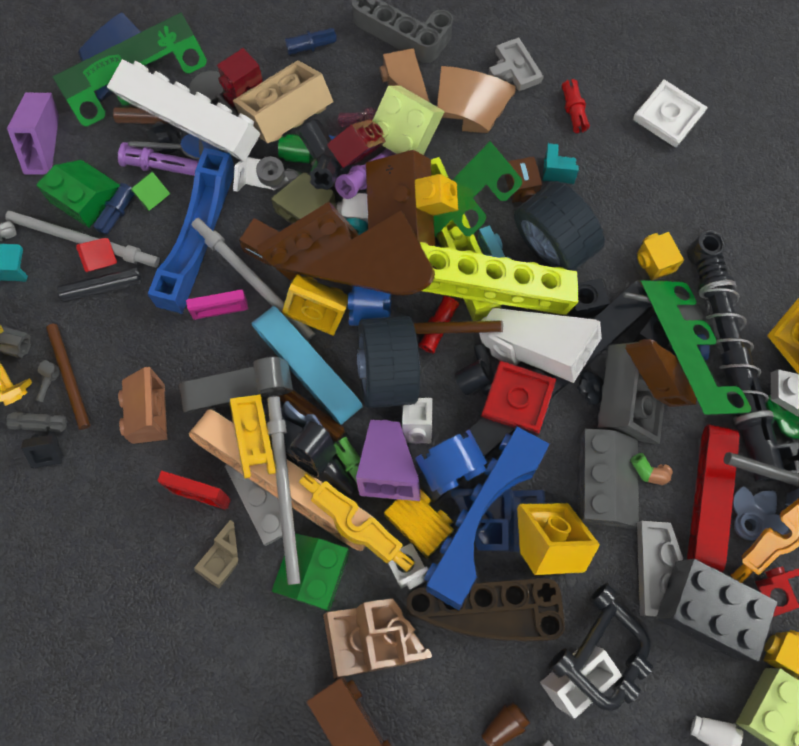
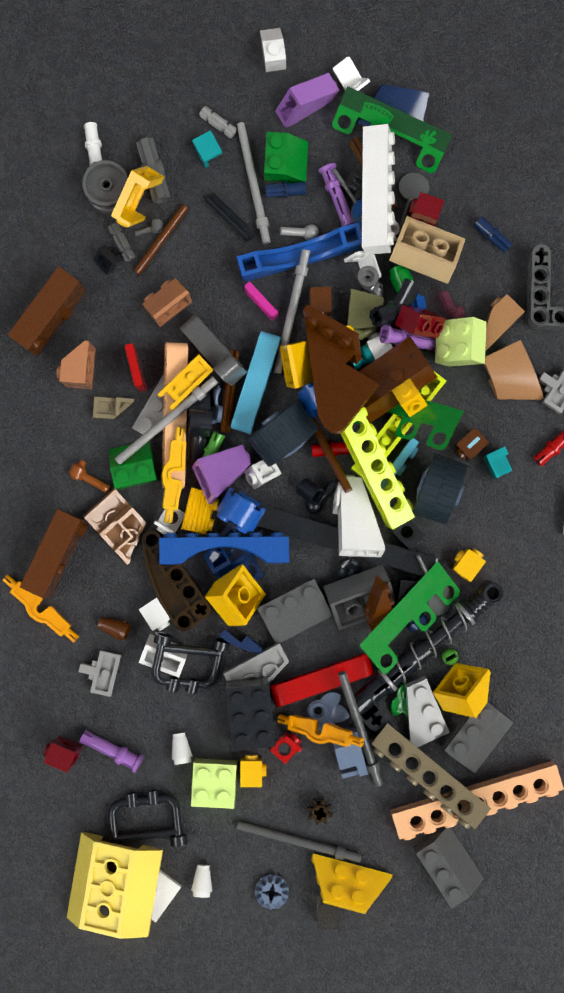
camera: 60 degrees right, 15 degrees up
(41, 80) = (349, 75): none -> white bracket
(49, 560) = (47, 311): none -> reddish brown brick
(96, 254) = (246, 202): slope -> none
(144, 565) = (78, 367): none -> nougat slope
(150, 191) = (311, 204): bright green tile -> none
(177, 215) = (308, 232): none -> light grey bar
(275, 647) = (78, 472): none -> dark orange piece
(518, 397) = (310, 527): red tile -> none
(519, 658) = (155, 615): none -> white brick
(617, 563) = (246, 644): none -> dark blue slope
(659, 475) = (313, 633): arm -> none
(752, 335) = (448, 652): none -> bright green hinge

